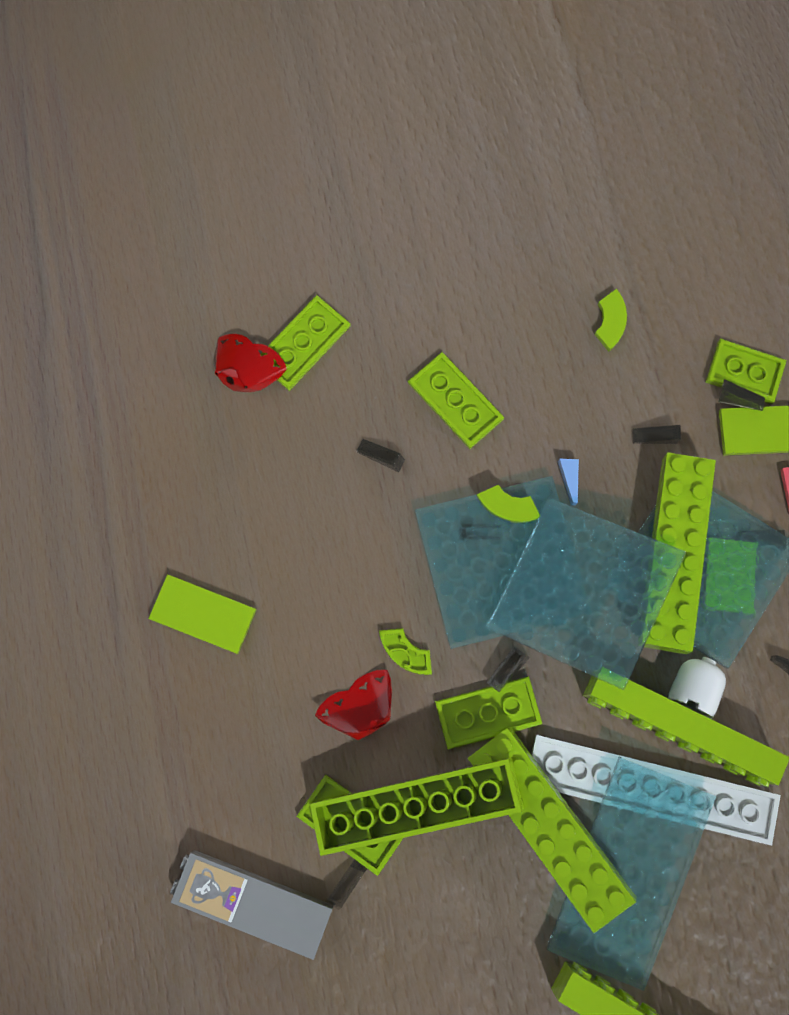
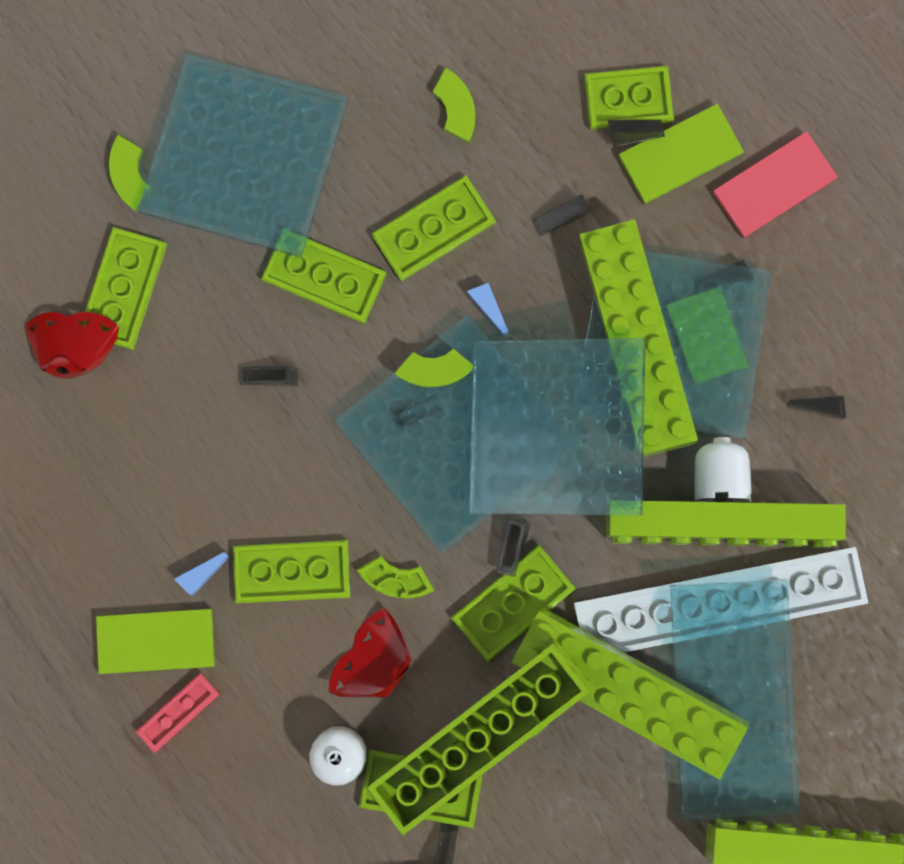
camera: 25 degrees left, 5 degrees up
(193, 676) = (177, 712): none -> coral tile
(255, 580) = (196, 578): none -> light blue piece
(311, 766) = (348, 745): none -> white cylinder
(329, 609) = (291, 571): none -> lime tile
(344, 261) = (125, 172): none -> lime tile
(437, 286) = (243, 155): none -> clear light blue plate
(554, 401) = (433, 228): none -> lime tile

